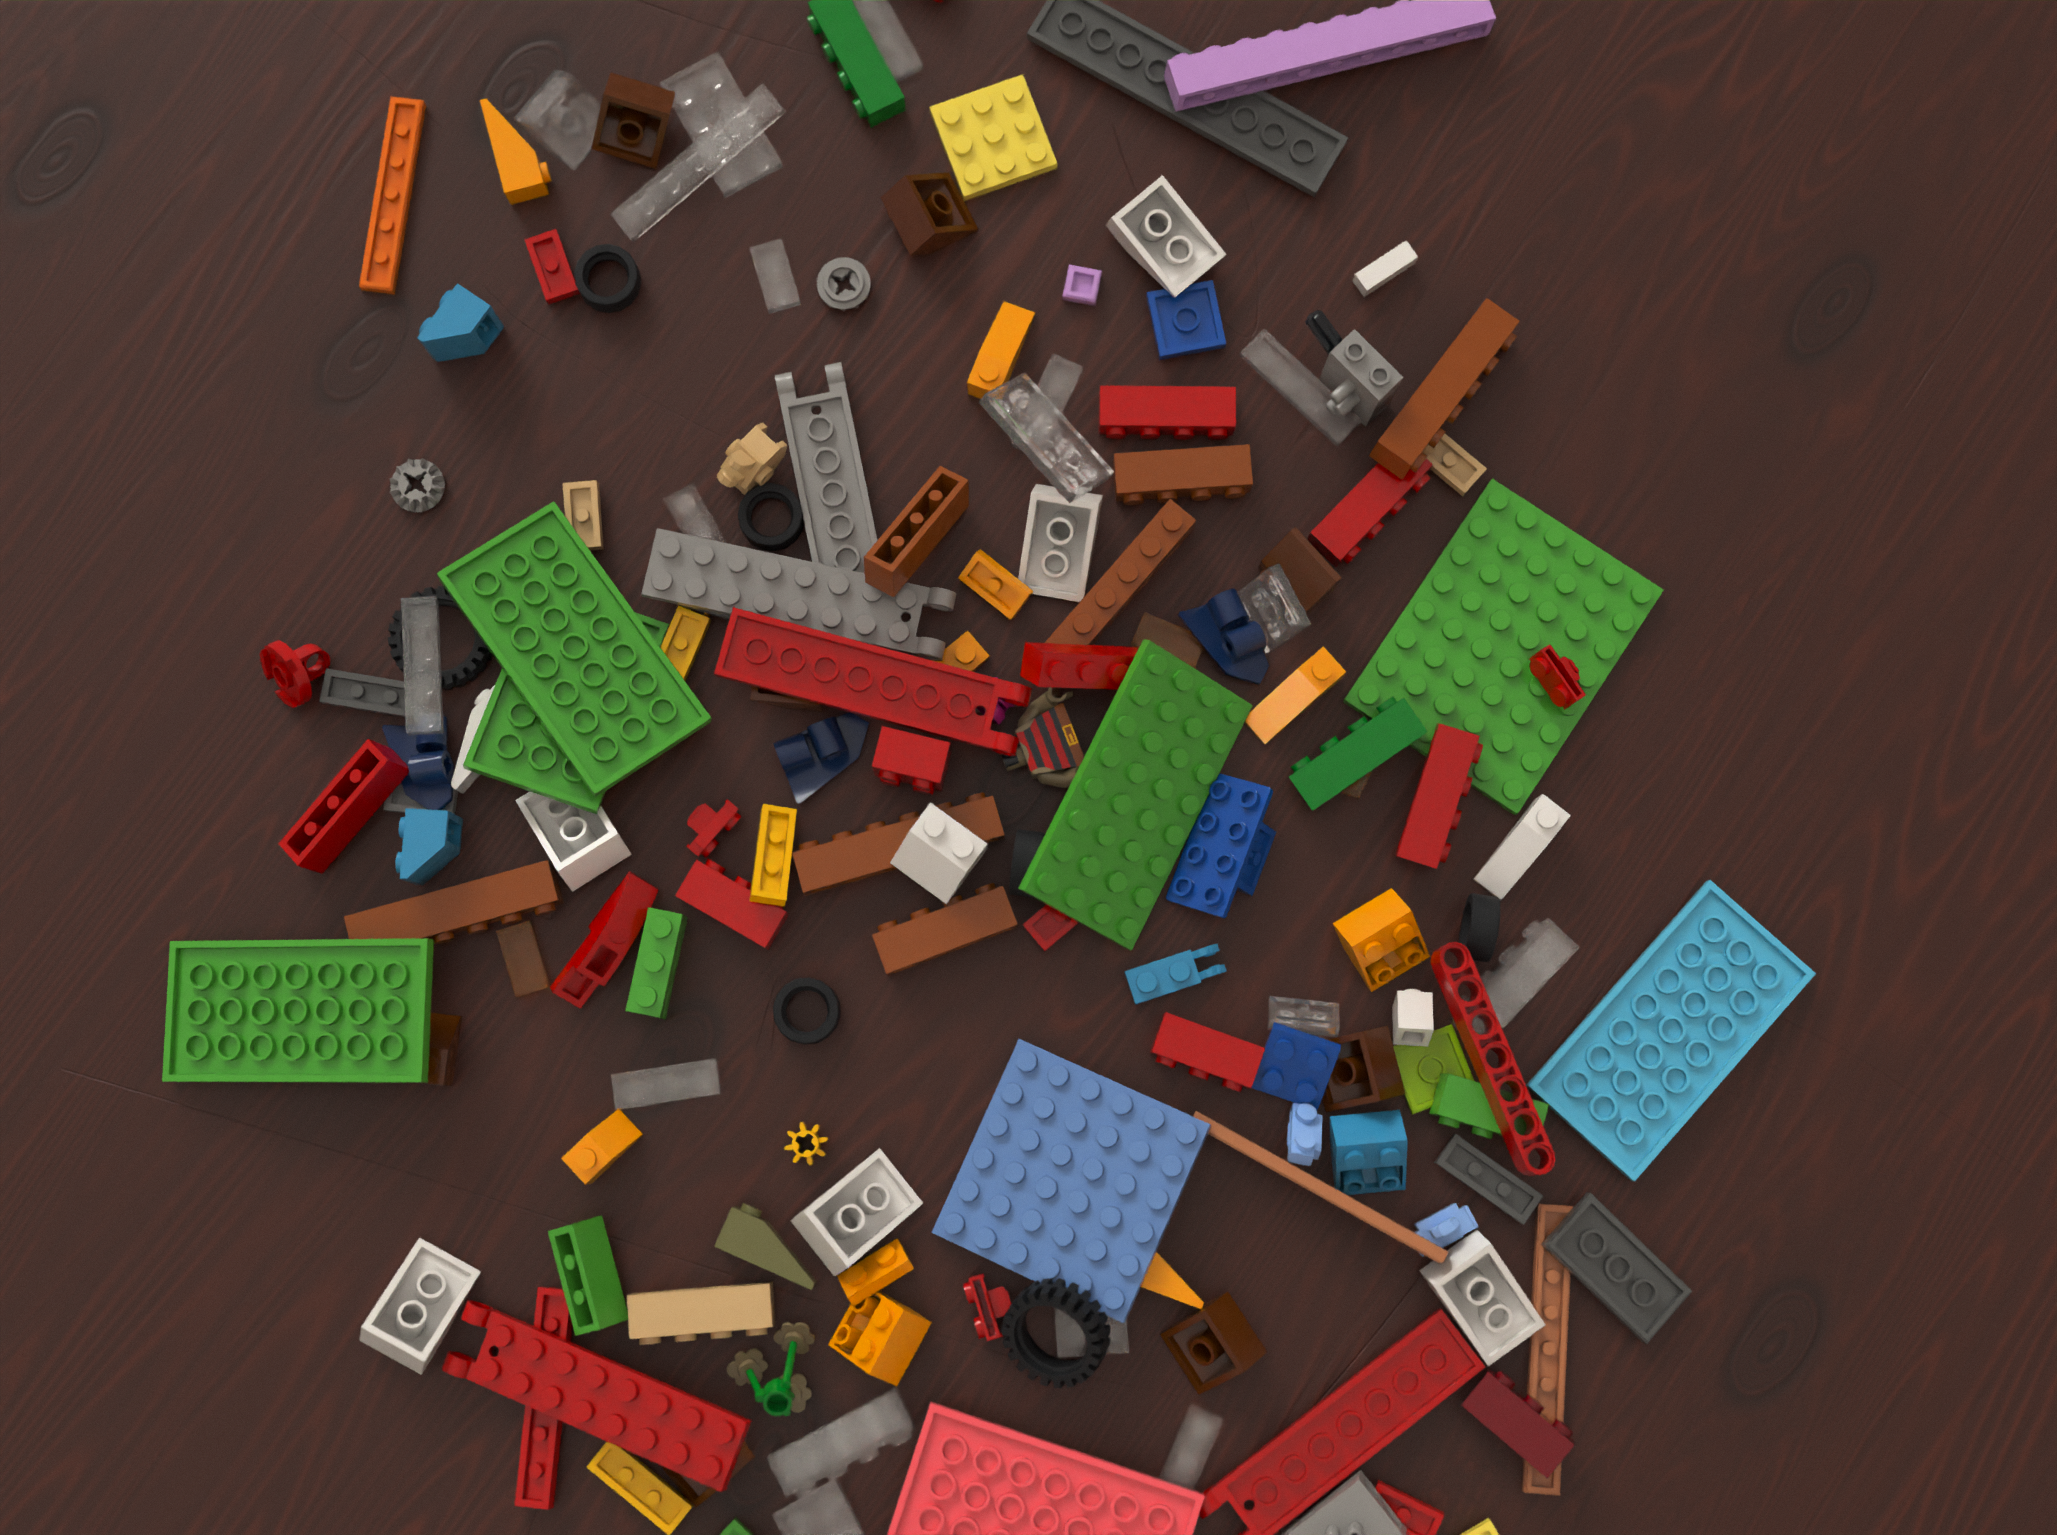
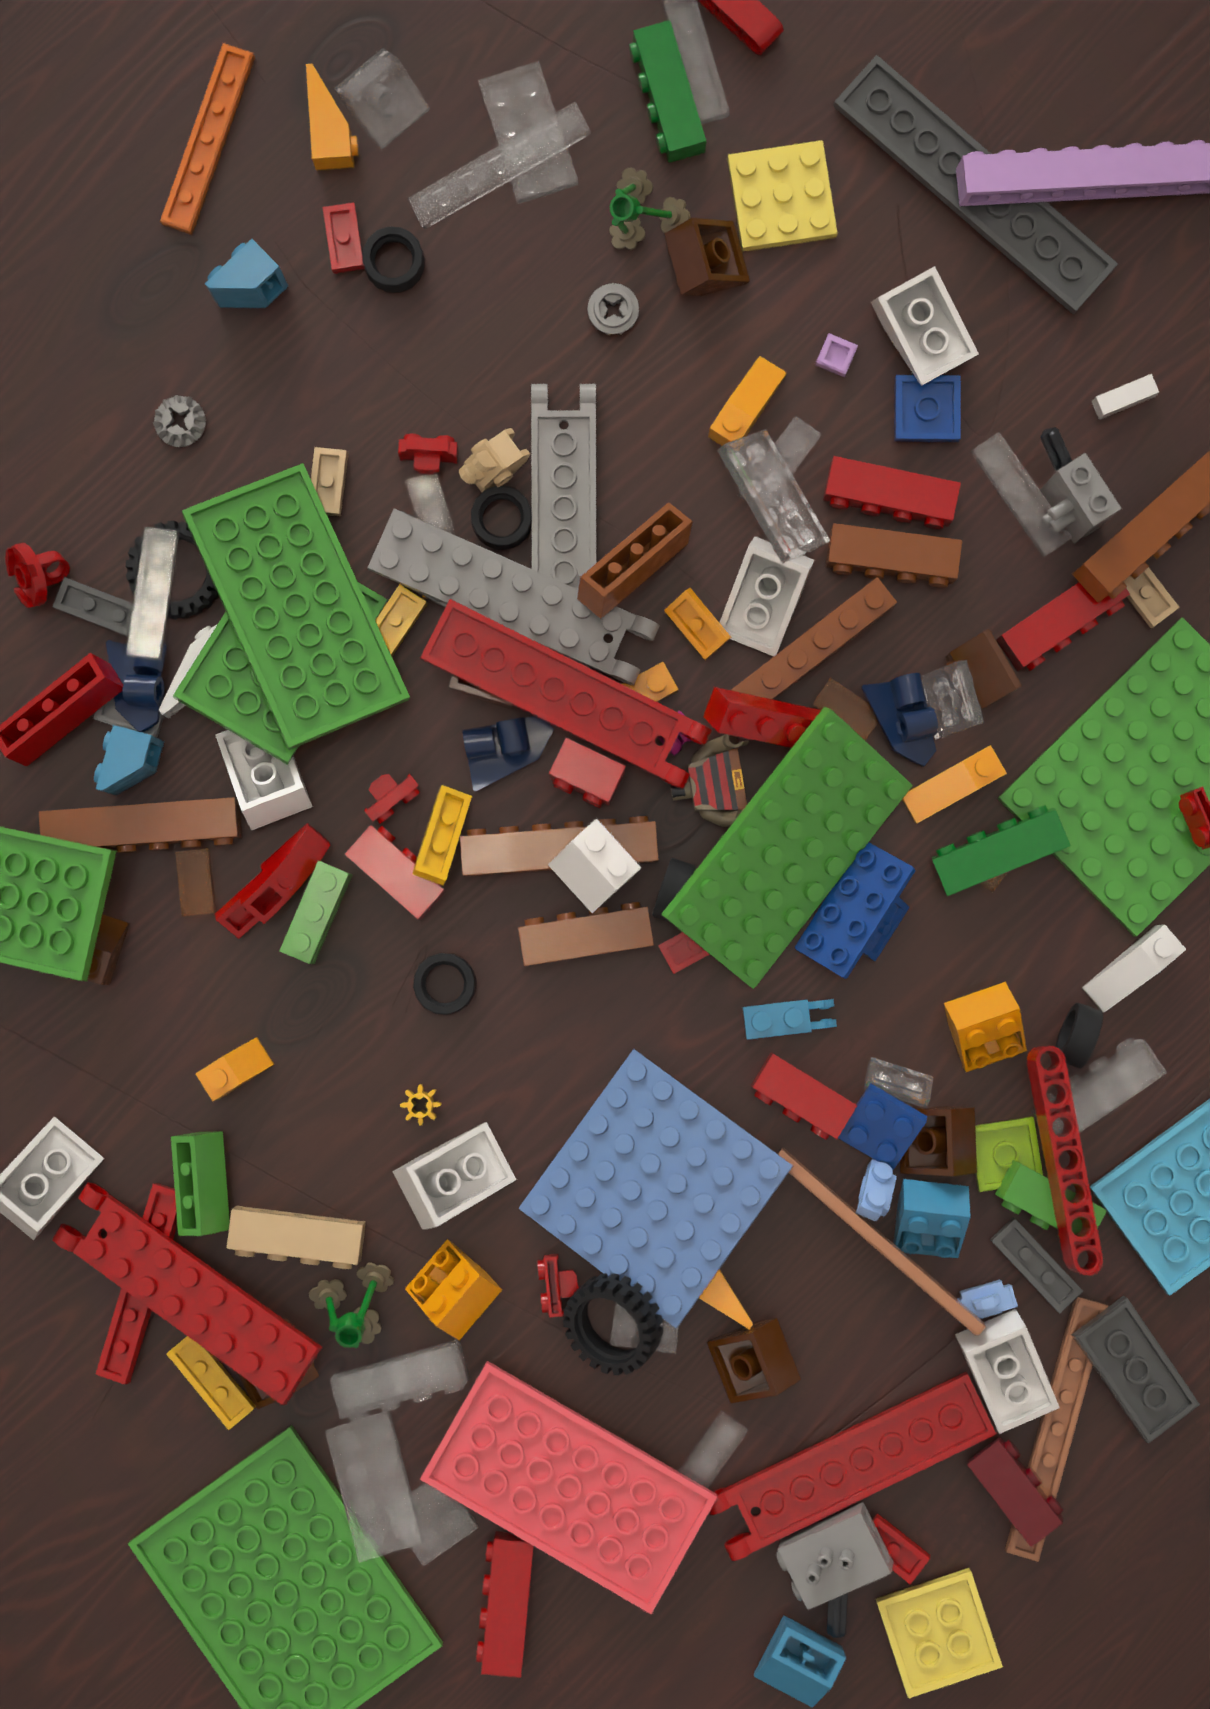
camera: 15 degrees right, 5 degrees up
(633, 120) = (446, 112): reddish brown slope -> none
(666, 1084) = (303, 1024): clear plate -> none
(681, 465) = (428, 452): none -> red piece
(758, 1242) = (359, 1185): olive slope -> none
(775, 276) = (550, 288): clear plate -> none
(838, 174) = (626, 208): none -> dark tan plant
(875, 1272) = (460, 1233): light orange plate -> none
(1412, 1018) = (999, 1105): white brick -> none
(1437, 796) = (1066, 906): red brick -> none

